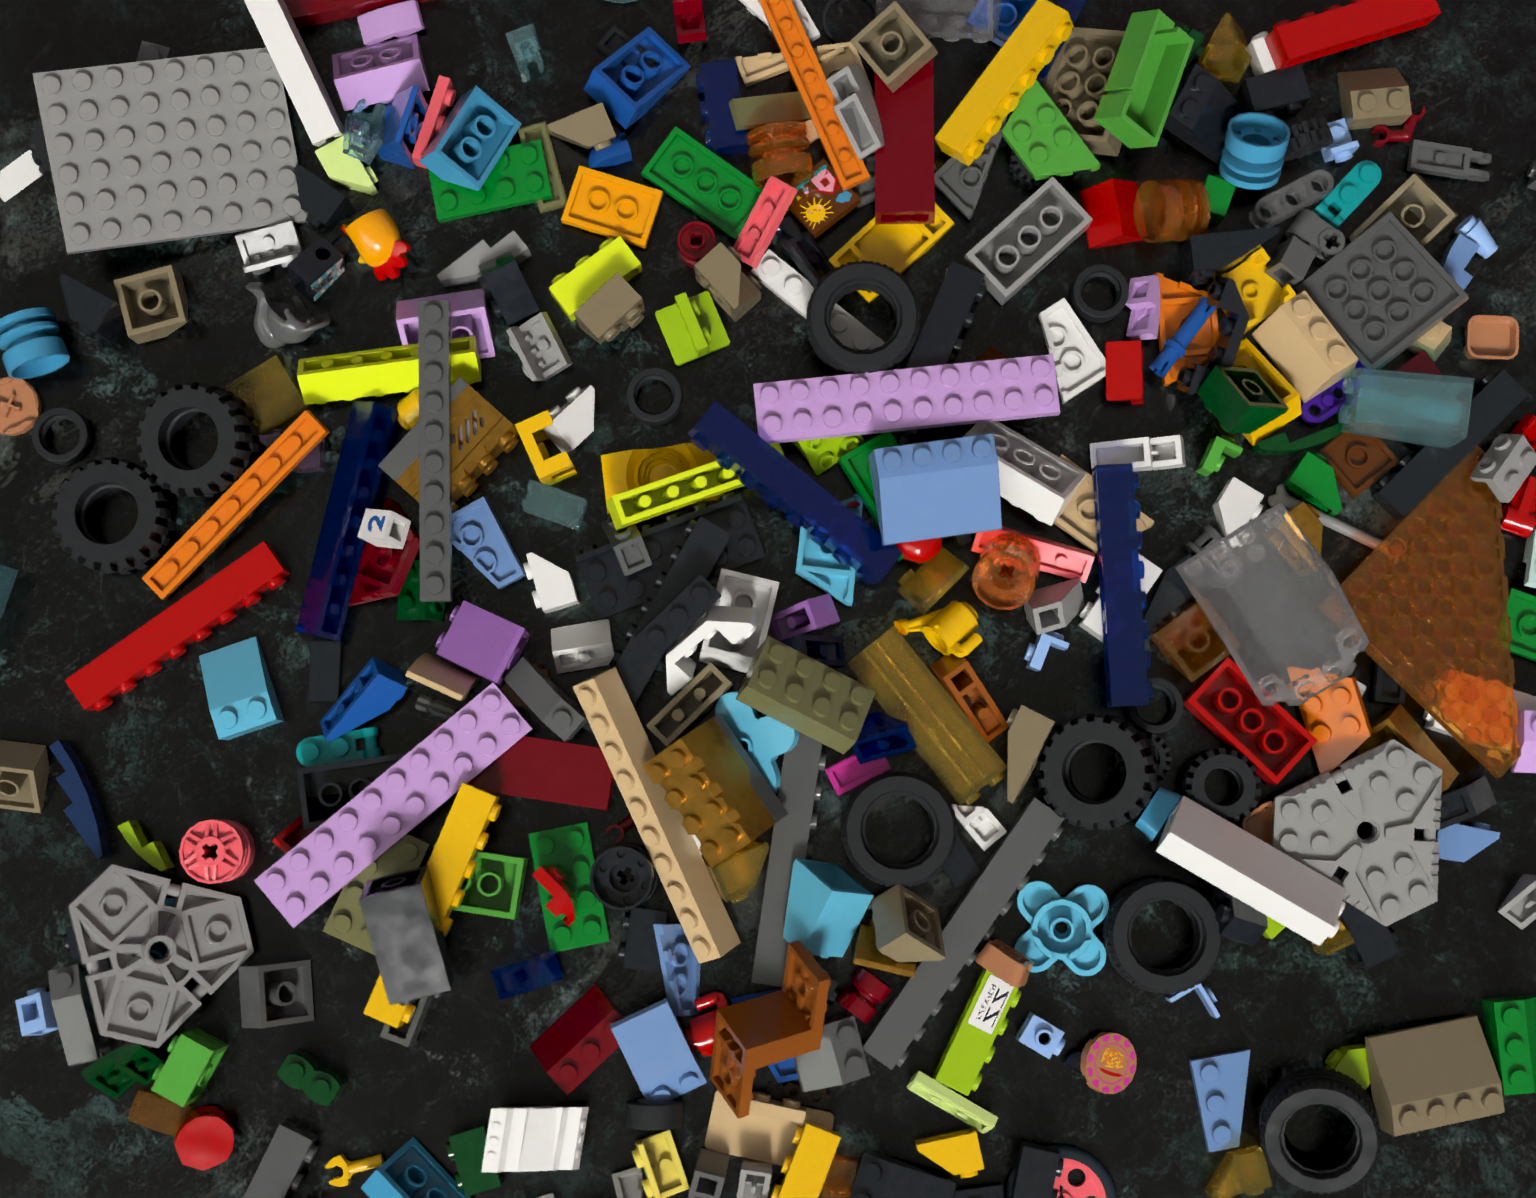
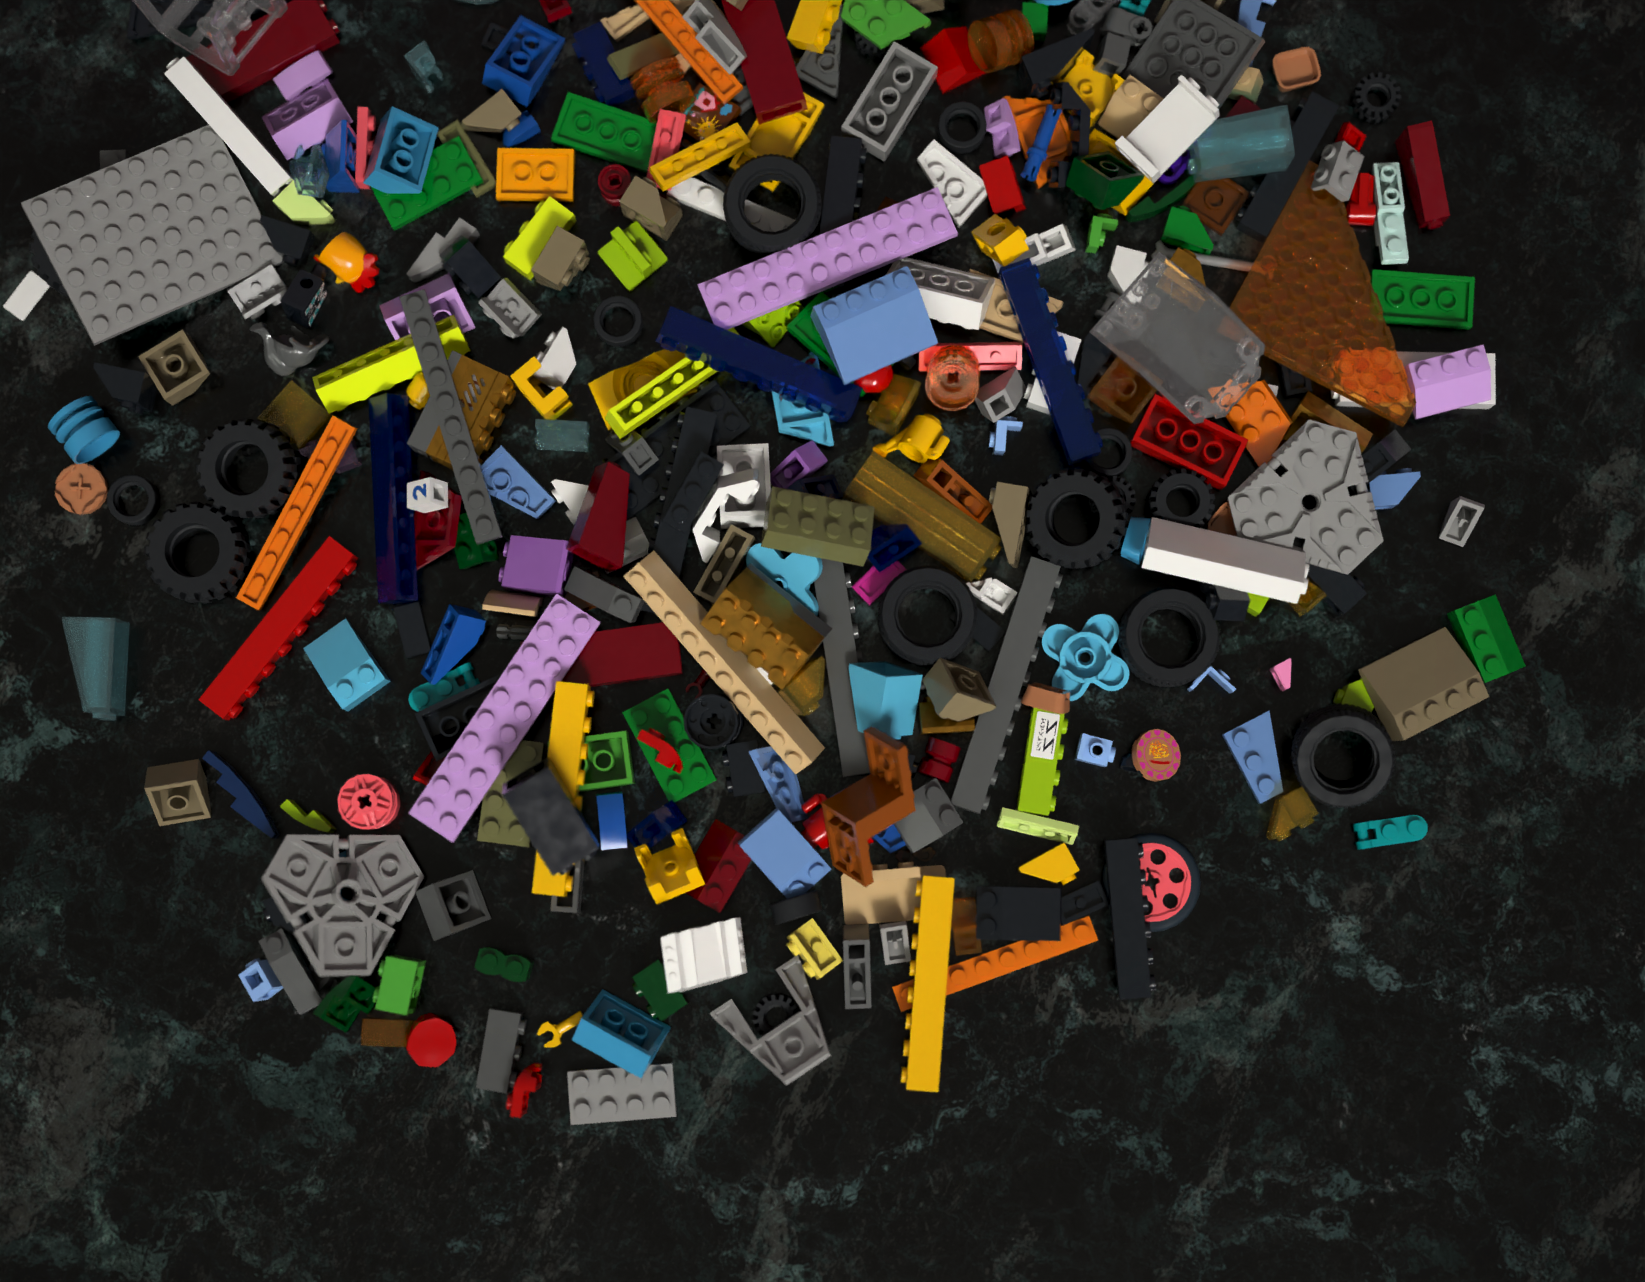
camera: 15 degrees left, 0 degrees up
(479, 952) = (611, 820): none -> blue slope
(528, 1028) = (670, 870): none -> yellow panel
(569, 613) = (602, 518): none -> dark red slope
(798, 241) = (699, 156): none -> yellow plate
(1105, 432) = (1000, 239): none -> yellow brick
(1277, 1013) = (1282, 674): none -> bright pink slope
(1332, 365) = (1169, 129): none -> white panel

